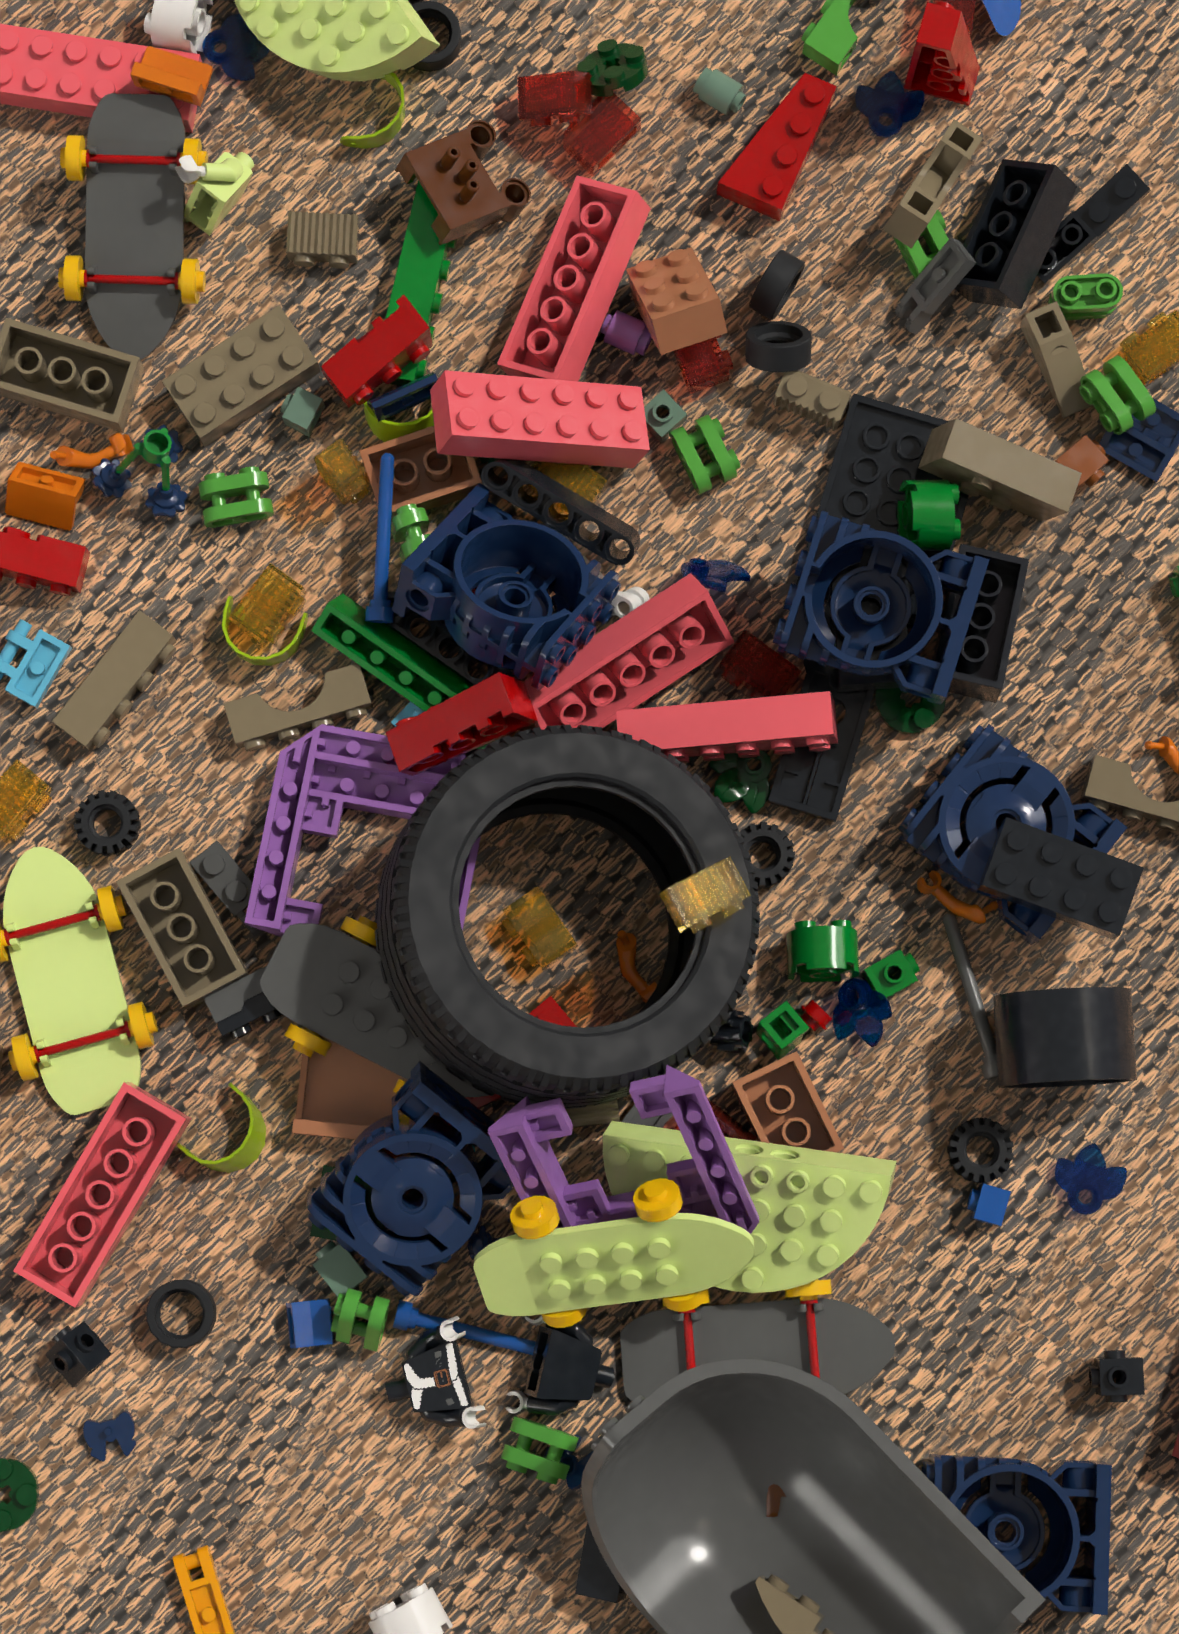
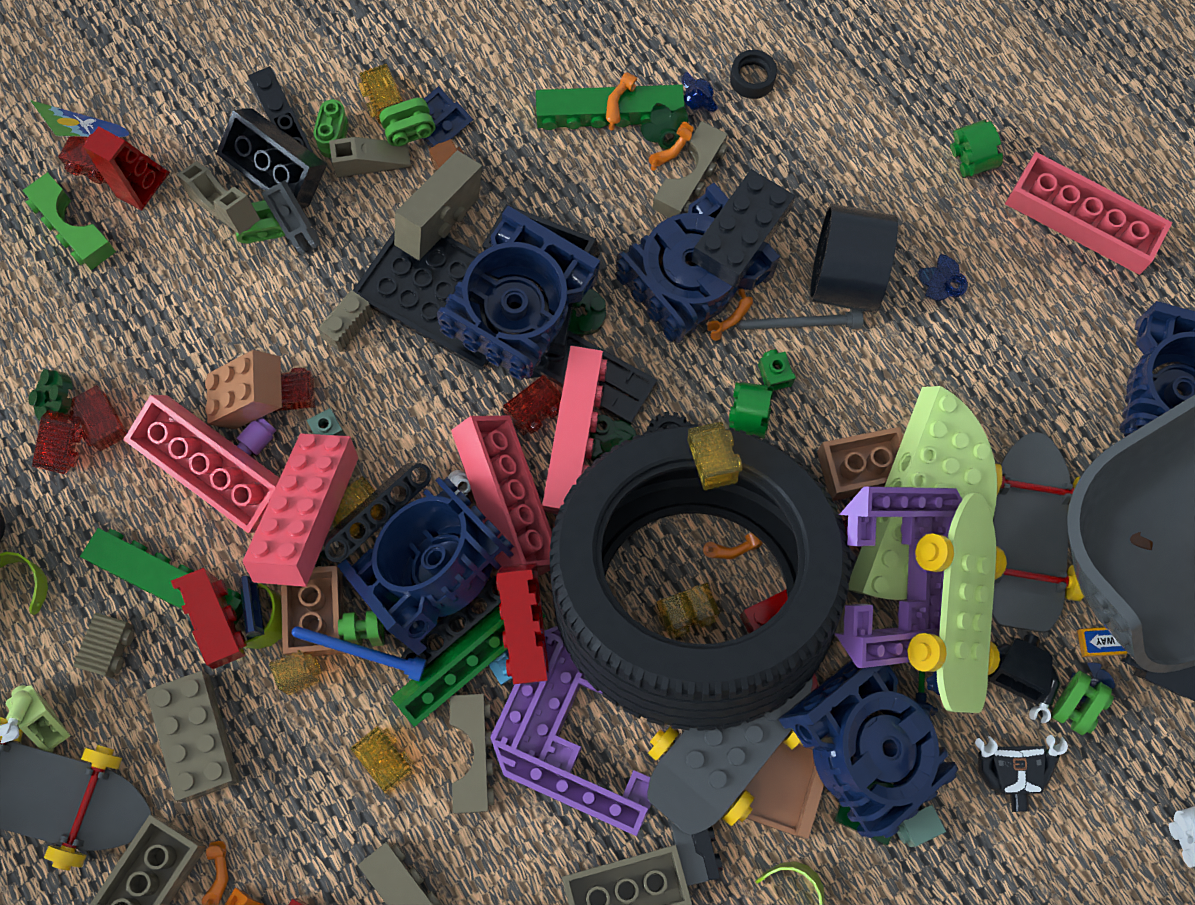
camera: 80 degrees left, 10 degrees down
(156, 448) = (228, 818): dark blue plant -> none
(225, 880) = (593, 846): dark grey hinge -> none
(248, 482) = (279, 752): bright green brick -> none
(270, 660) = (424, 779): lime piece -> none
(302, 411) = (236, 695): sand green plate -> none
(310, 1323) = (956, 861): blue piece -> none
(347, 1311) = (961, 822): bright green brick -> none
(409, 1317) = (964, 780): blue piece -> none
(460, 185) = (98, 526): reddish brown piece -> none
(709, 434) = (351, 397): bright green brick -> none
(714, 573) = (454, 416): clear blue plate -> none
(719, 91) = (97, 329): sand green brick -> none
(775, 157) = (162, 302): red wedge -> none
(776, 284) = (255, 322): black tyre -> none
(778, 346) = (301, 332): black tyre -> none
(782, 1030) = (804, 449): green brick -> none
(815, 1016) = (794, 429): red plate -> none
(860, 1015) = (802, 396): clear blue plate -> none
(890, 101) = (146, 221): clear blue plate -> none
(929, 514) = (452, 255): green brick -> none
(988, 1204) = (951, 345): blue plate -> none
(1002, 1150) = (919, 331): black tyre -> none
(1130, 1376) = (1084, 291): black brick -> none

